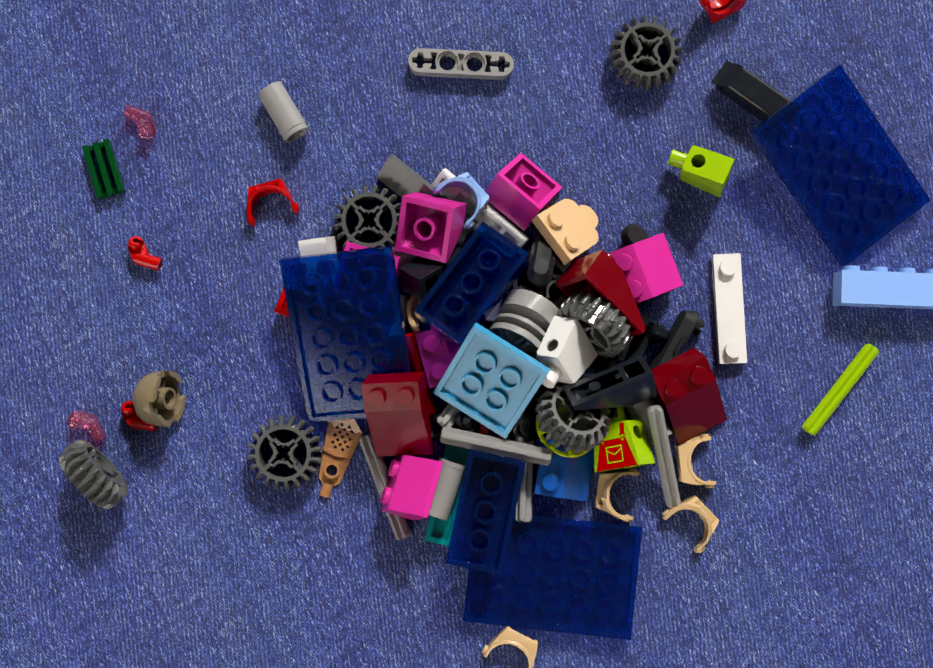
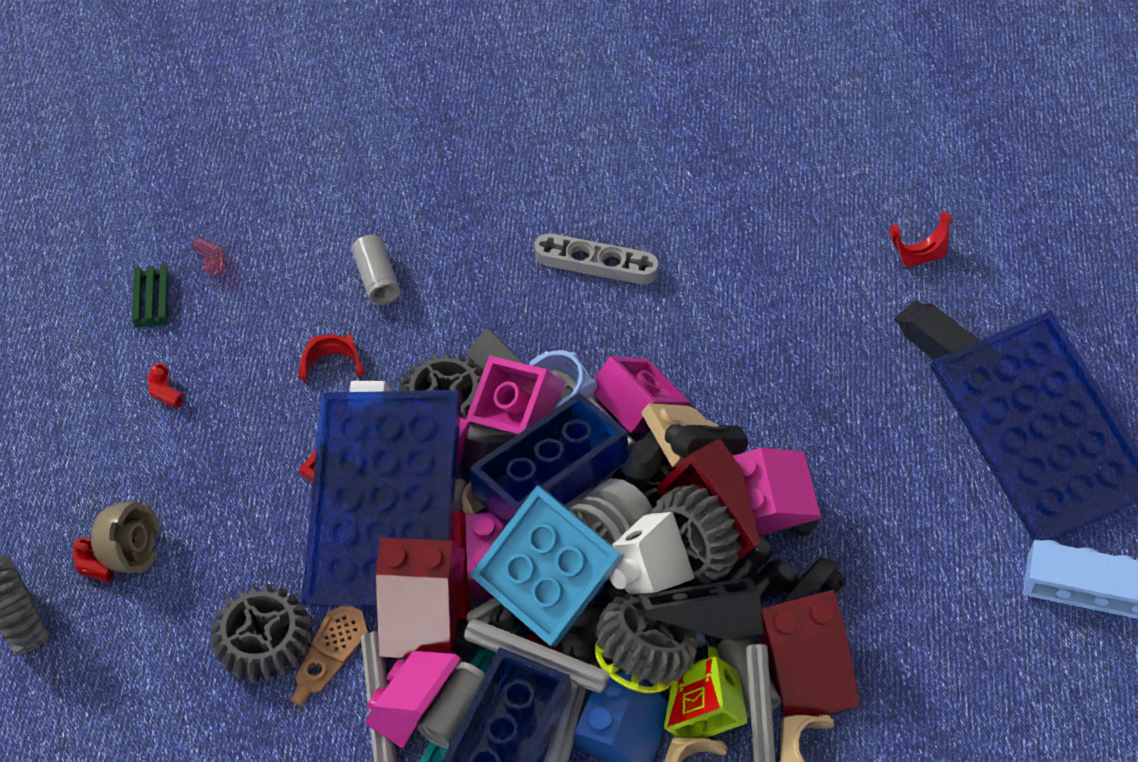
camera: 15 degrees right, 30 degrees down
(88, 422) = (28, 555): clear pink arm -> none
(589, 241) = (691, 438): none -> black piece
(633, 34) = (815, 287): dark grey gear -> none
(712, 171) = (871, 404): lime torso -> none
(729, 308) = (881, 573): white plate -> none
(840, 389) = (1021, 695): lime axle -> none

